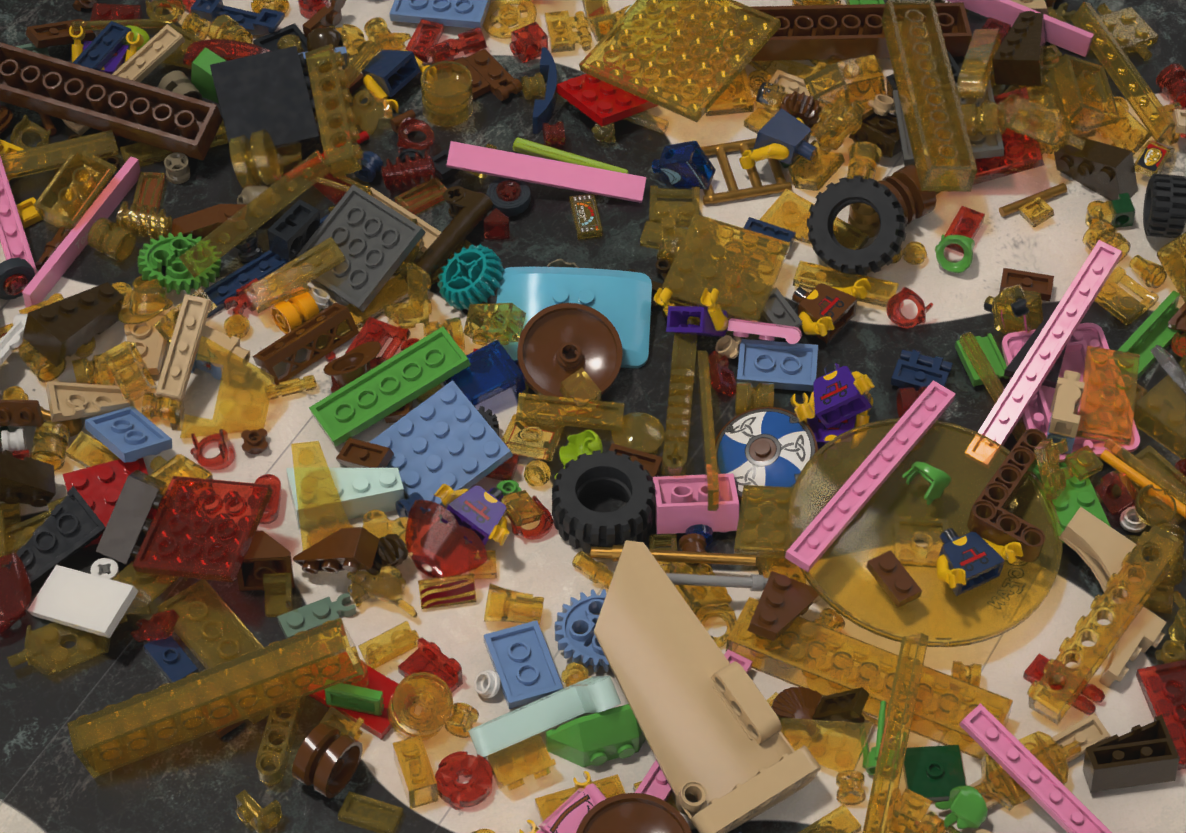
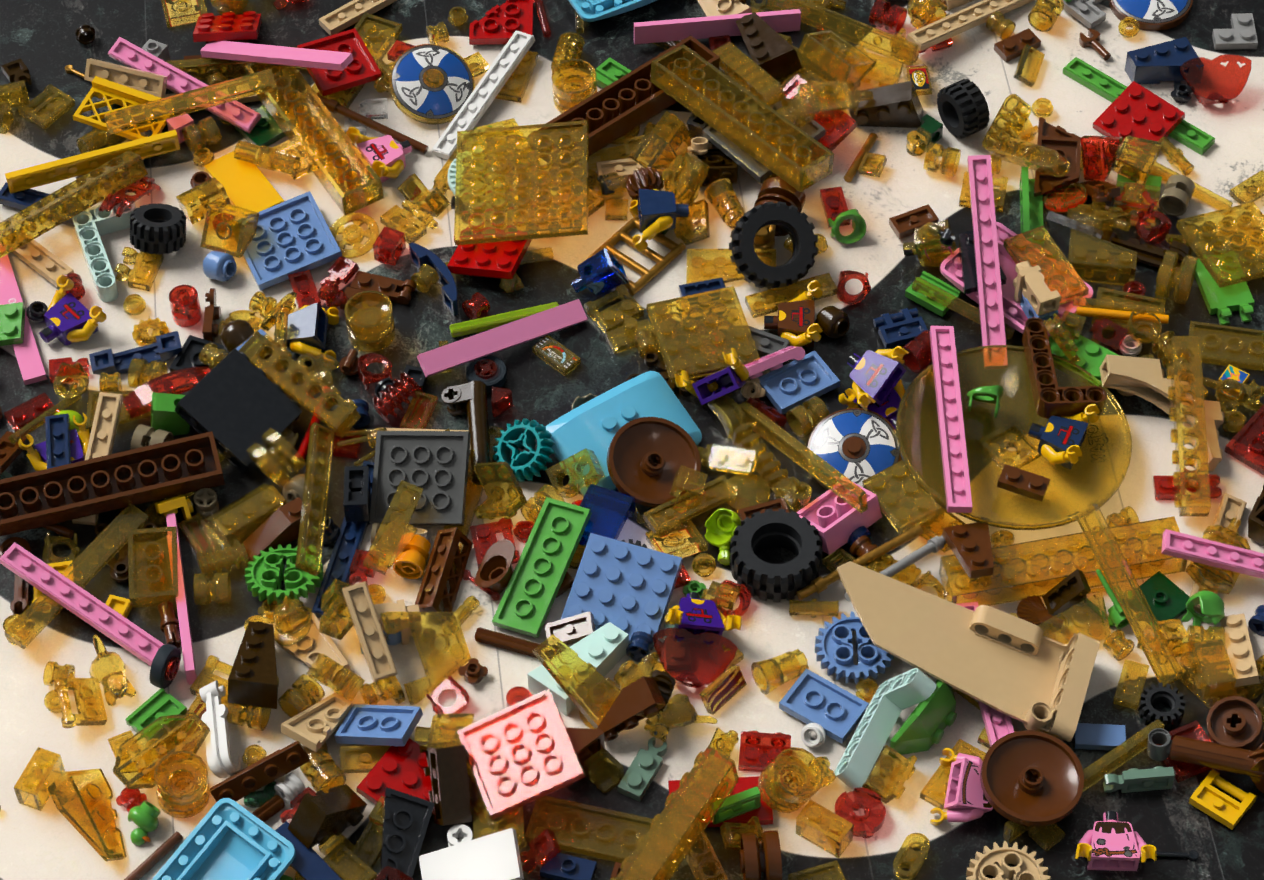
camera: 35 degrees left, 0 degrees up
(141, 152) = (170, 506): none -> yellow bracket
(192, 196) = (245, 514): none -> clear yellow slope
(307, 434) = (505, 641): none -> reddish brown axle
(645, 393) = (728, 459): none -> clear yellow hinge
(859, 329) = (833, 322): none -> dark brown head

